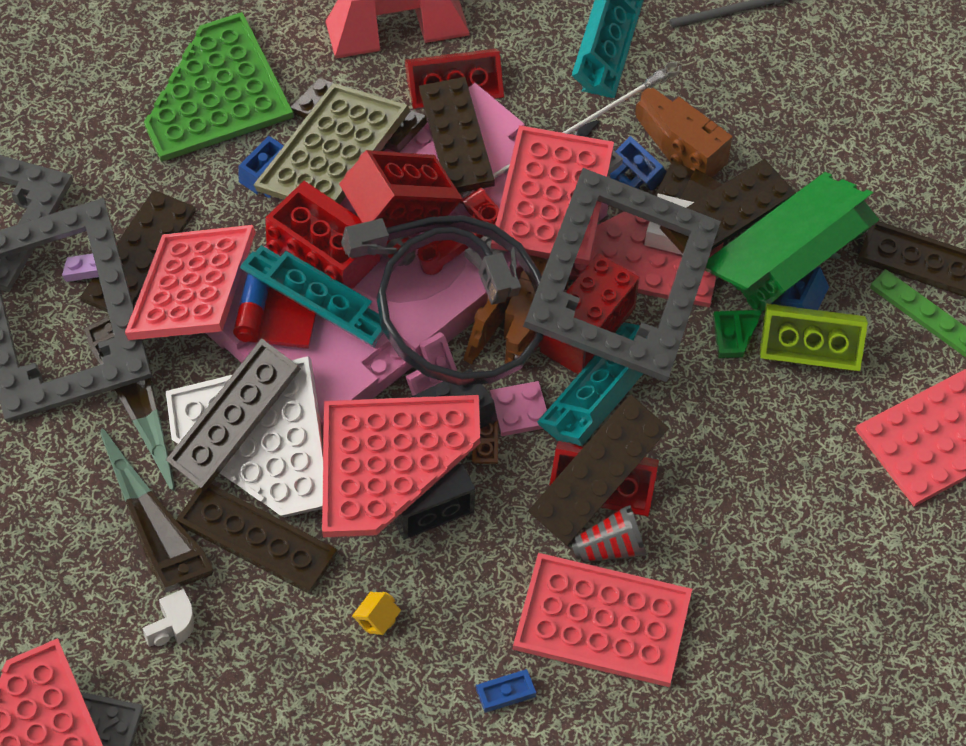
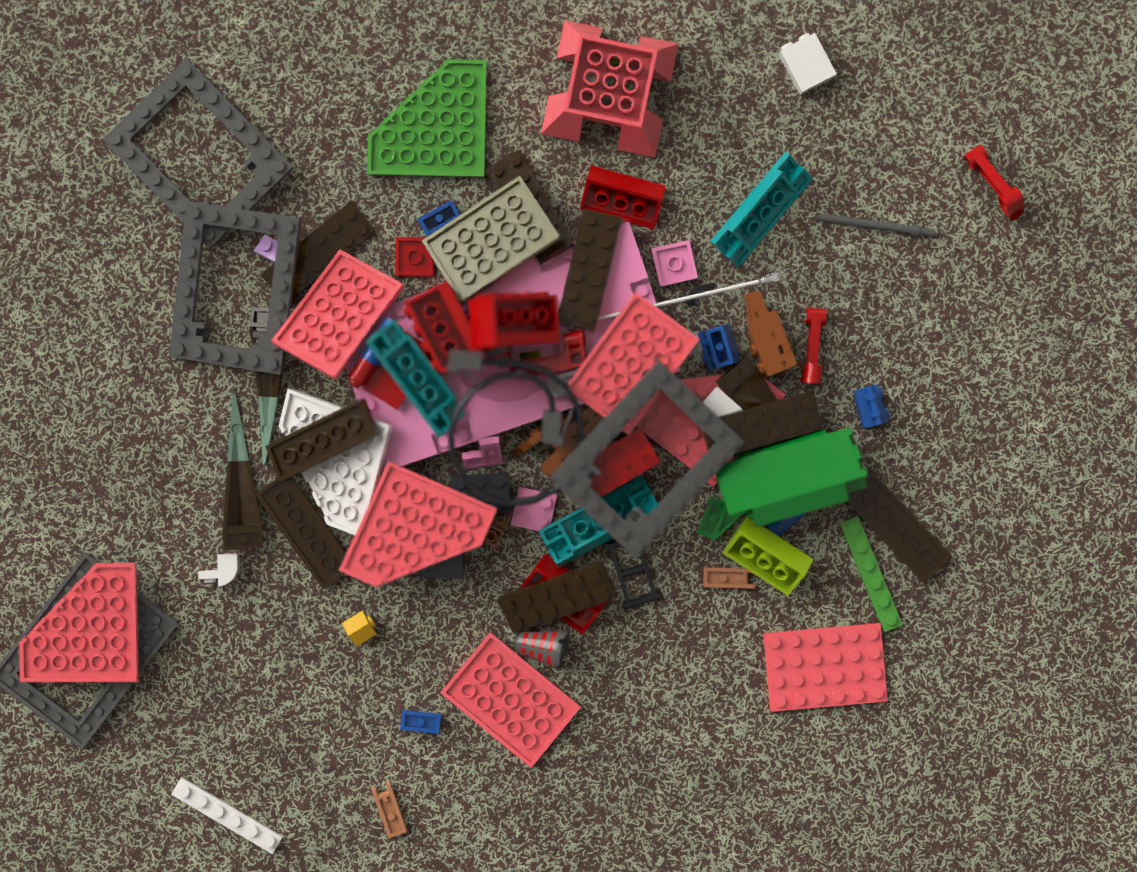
camera: 25 degrees right, 30 degrees up
(249, 211) = (412, 258): none -> red tile
(545, 112) = (674, 263): none -> bright pink plate
(658, 387) = (630, 571): none -> black piece
(748, 143) = (810, 370): none -> red piece
(781, 386) = (726, 577): none -> nougat hinge
(831, 157) = (870, 406): none -> blue brick

